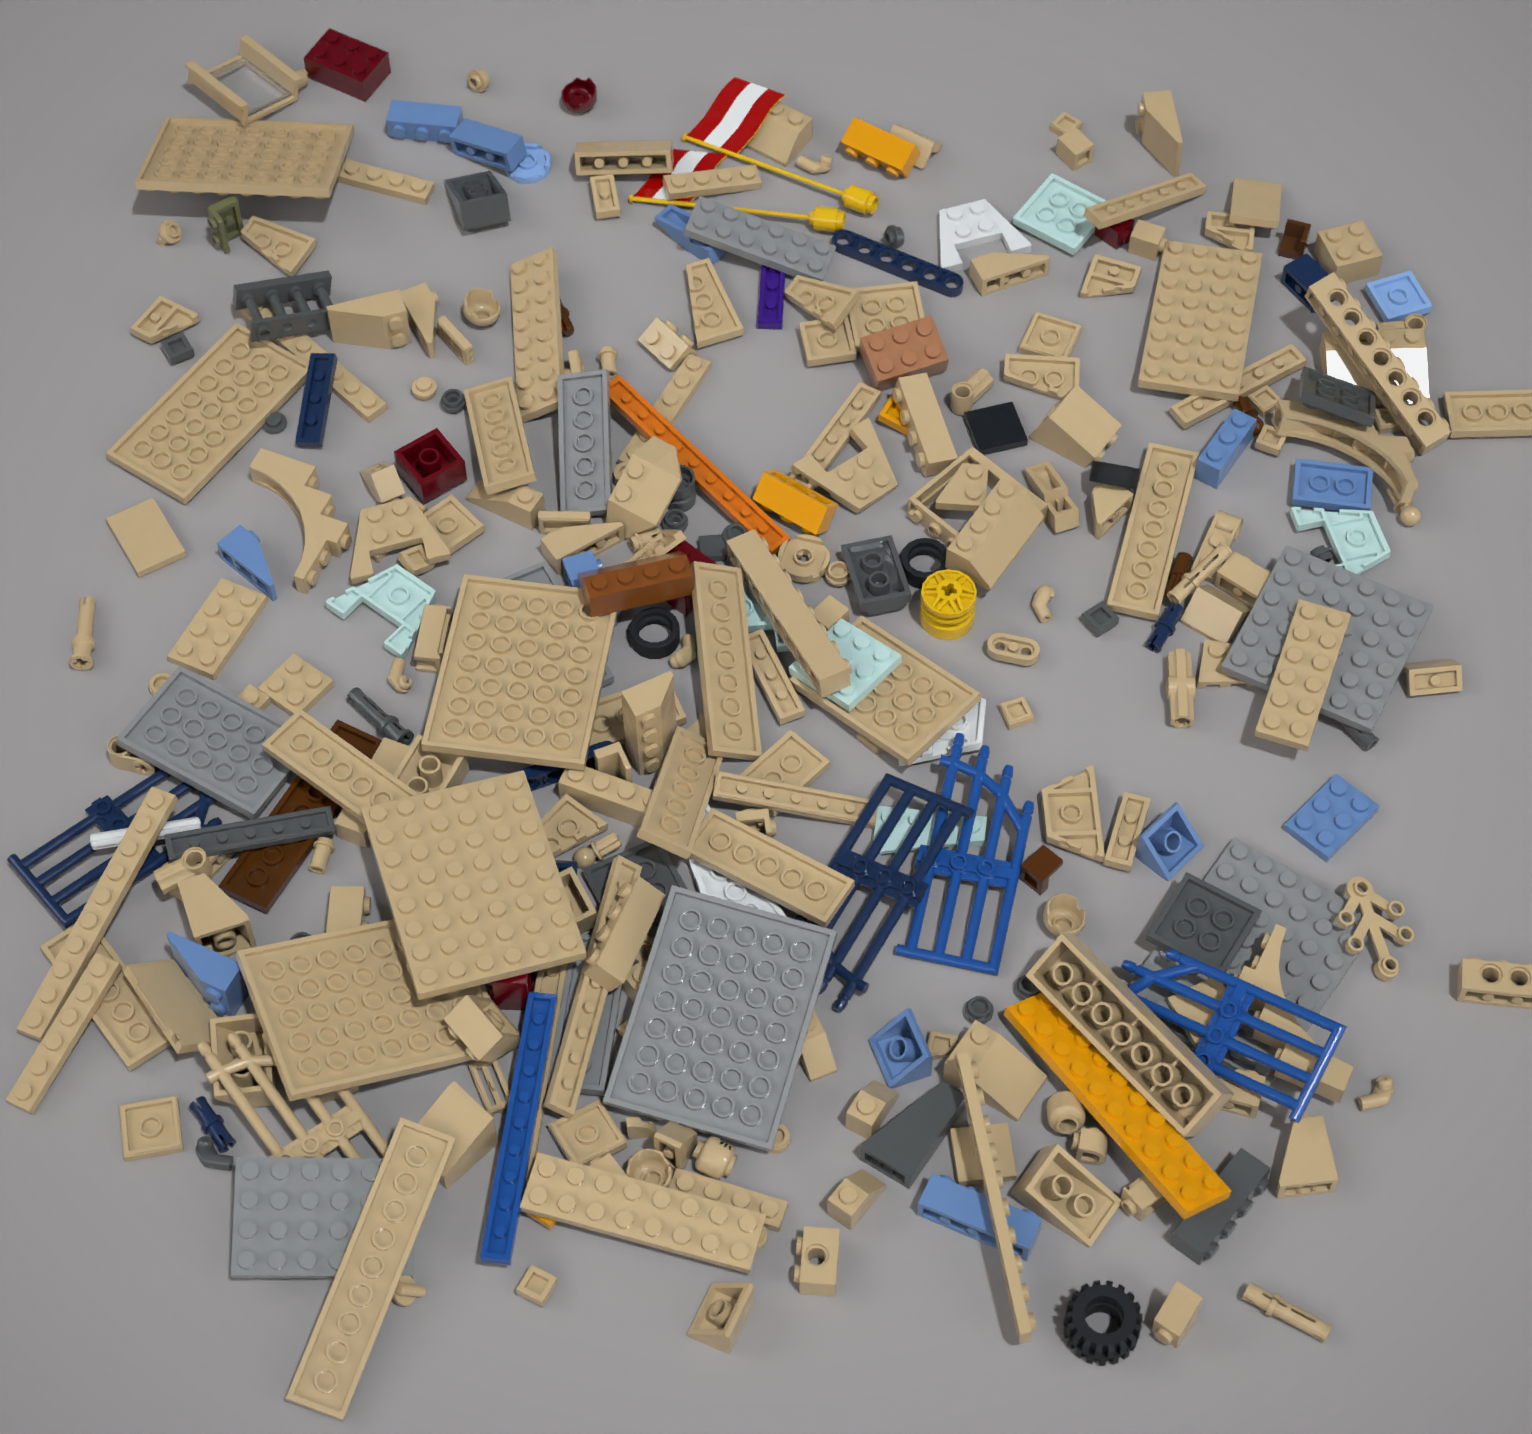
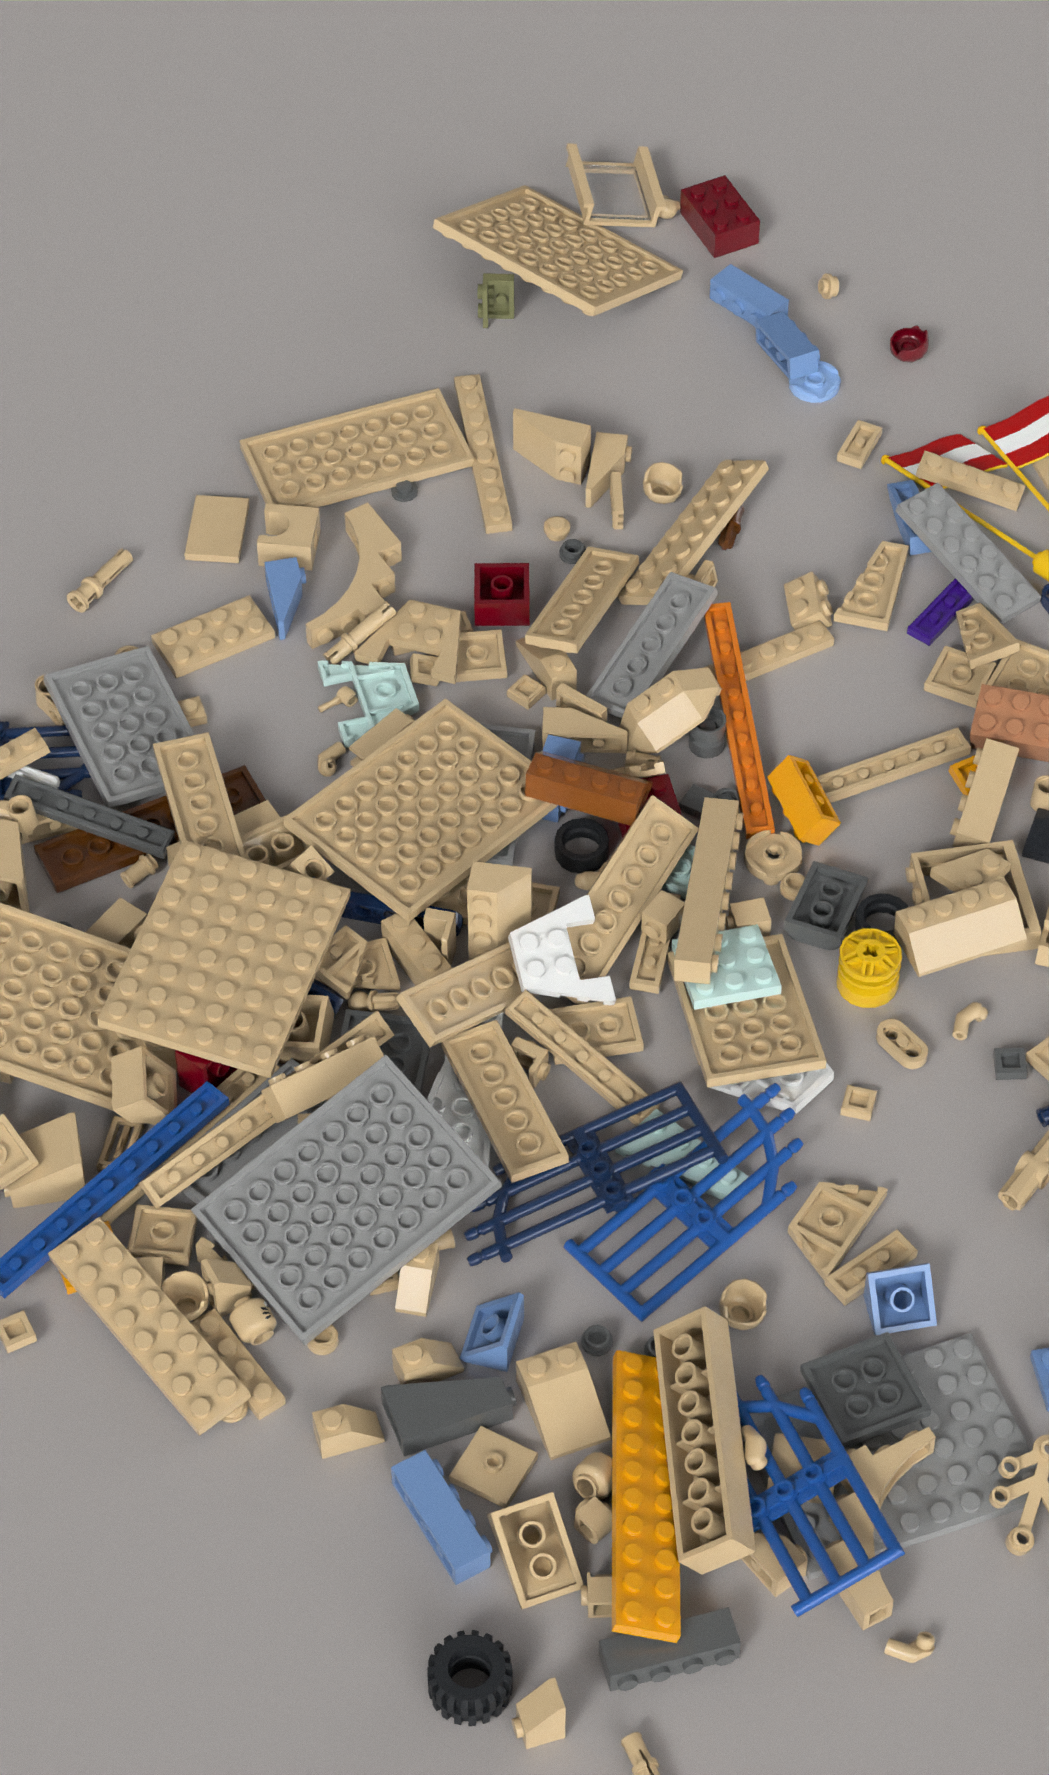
camera: 35 degrees right, 5 degrees down
(162, 320) = (379, 355): tan wing -> none
(169, 232) = (447, 284): tan plate -> none
(177, 348) = (372, 385): dark grey plate -> none
(222, 502) = (296, 534): none -> tan piece
(278, 244) = (532, 341): tan wing -> none
(283, 290) = (492, 378): dark grey fence -> none
(296, 685) = (237, 720): tan plate -> none
(316, 400) = (450, 488): dark blue plate -> none
(339, 570) = (351, 641): none -> tan pin
(369, 617) = (344, 695): none -> tan hand
(383, 482) = (451, 588): tan slope -> none
(386, 182) = (673, 335): tan plate -> none
(387, 725) = (284, 794): dark grey pin -> none
(471, 769) = (313, 861): none -> tan brick
(478, 200) = (738, 390): dark grey slope -> none
(508, 534) = (526, 692): none -> tan tile
(557, 831) = (343, 961): none -> tan wing
(608, 360) = (742, 585): tan pin -> none
(624, 157) = (902, 417): tan brick -> none
(675, 515) = (683, 760): dark grey plate -> none
(713, 737) = (546, 957): none -> white wing
(722, 1315) = (149, 1458): tan slope -> none
(769, 653) = (662, 917): none -> tan brick
(821, 1278) = (263, 1480): tan brick -> none
(858, 480) = (883, 814): tan wing -> none
(941, 1044) = (532, 1346): tan tile -> none
(998, 1207) = (453, 1511): tan plate -> none
(1038, 869) = (756, 1247): reddish brown panel -> none
(1171, 1017) = (754, 1448): none -> tan arm
(1308, 1160) = (786, 1660): tan slope -> none

